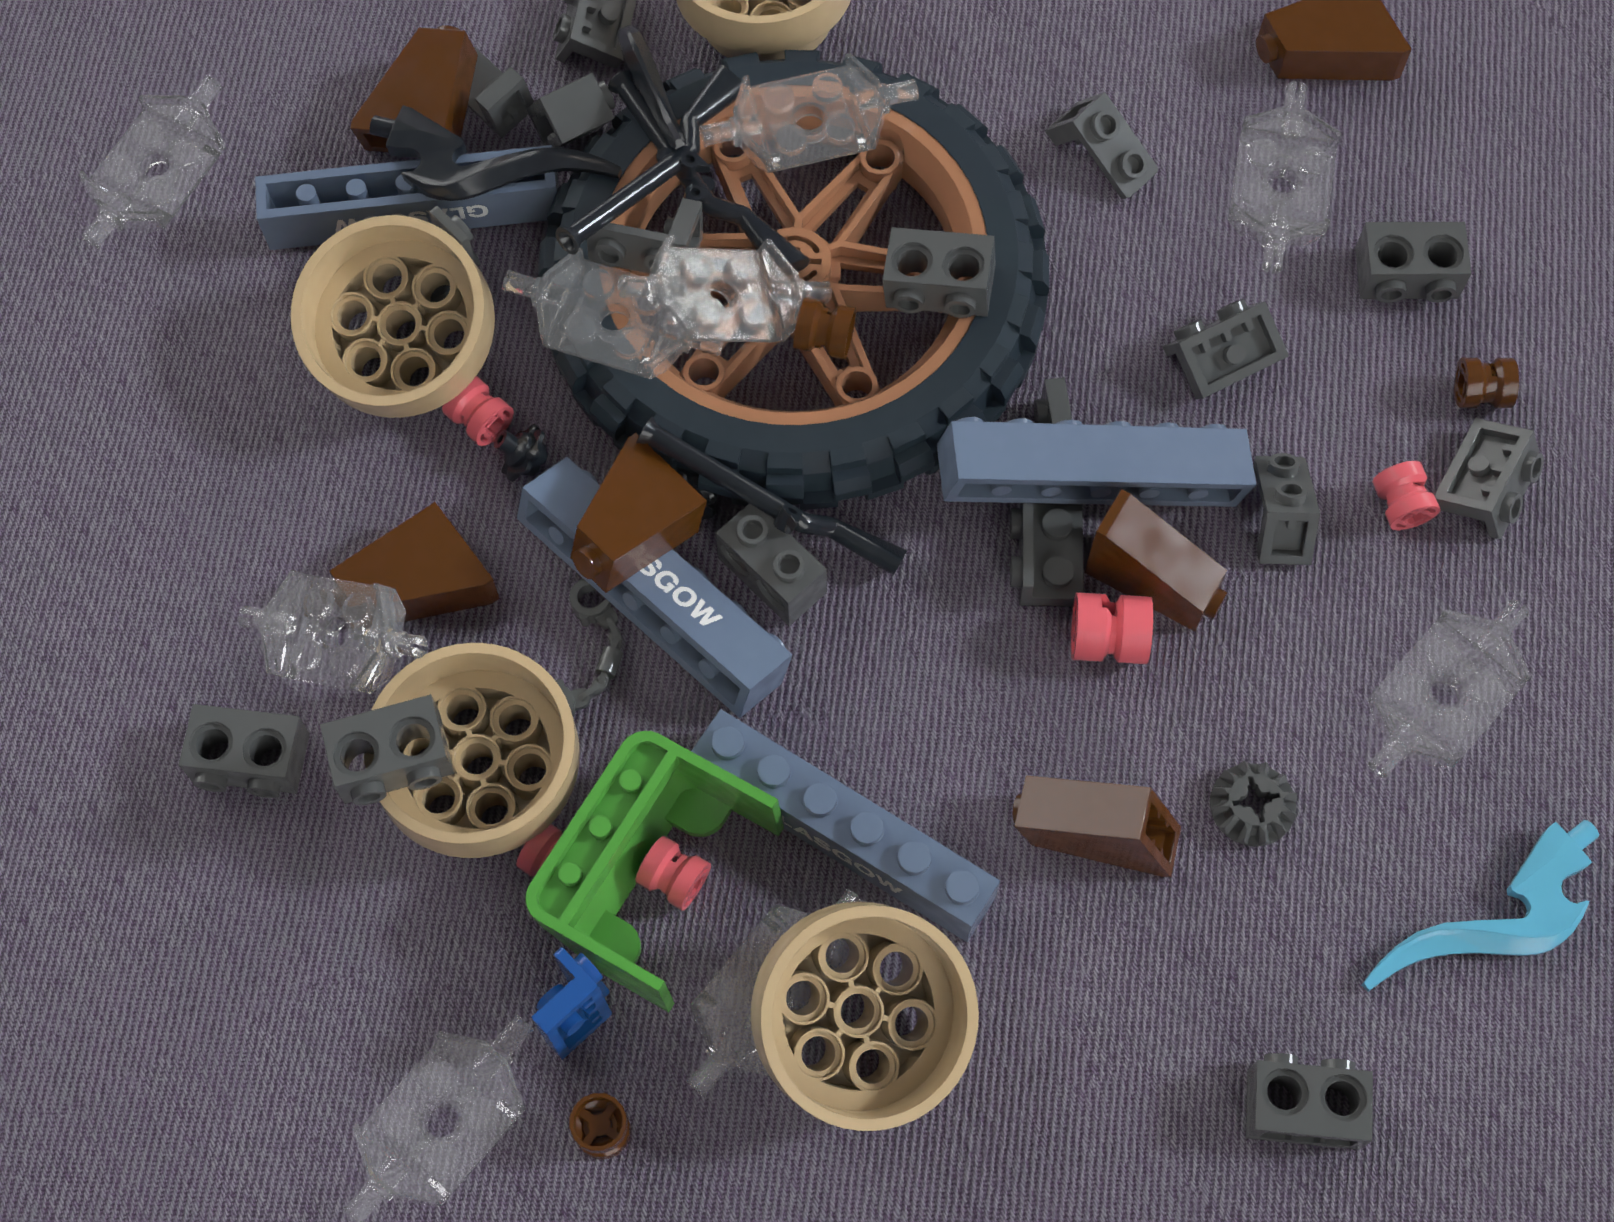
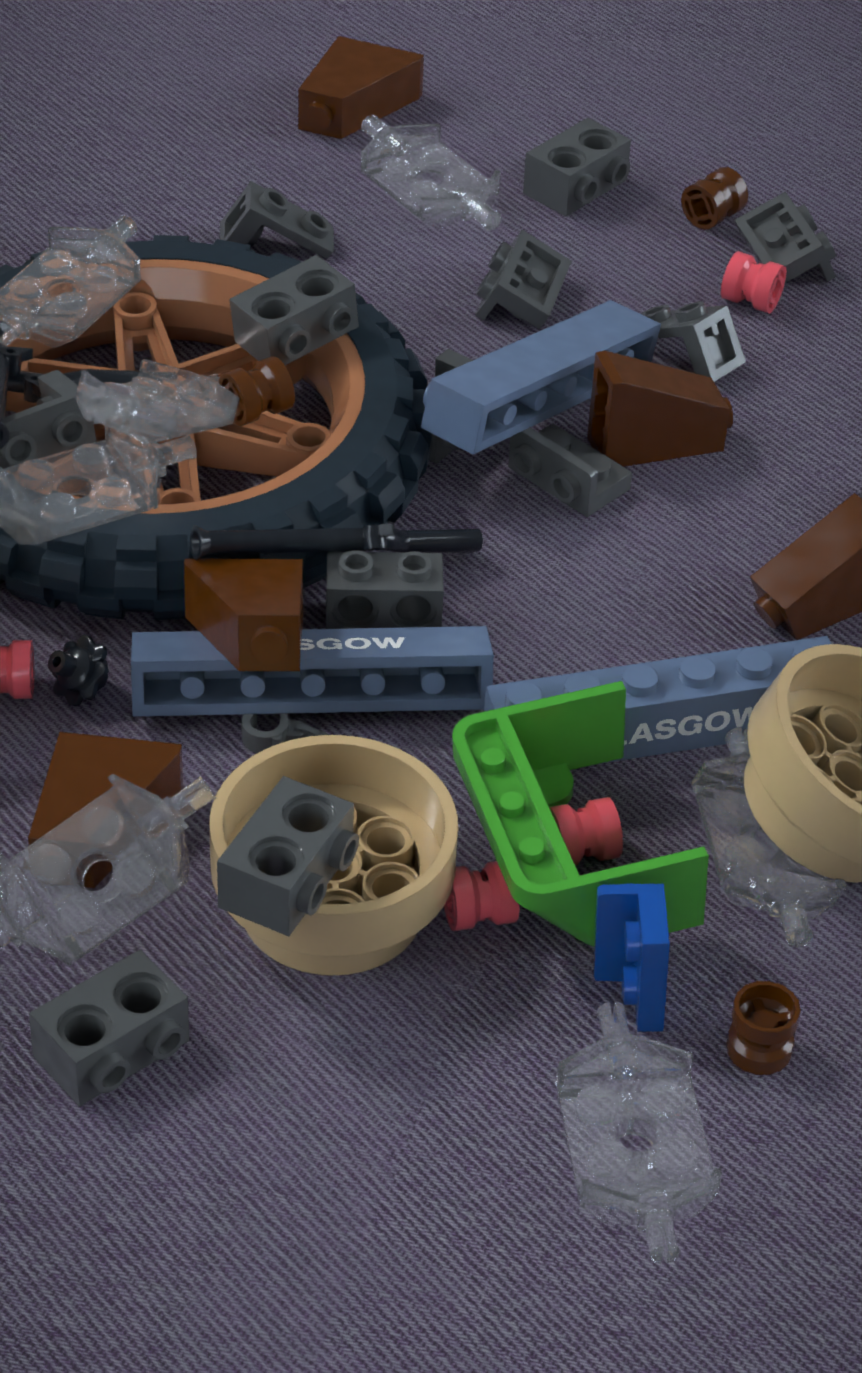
camera: 50 degrees left, 25 degrees down
(1111, 628) = (678, 468): coral wheel -> none

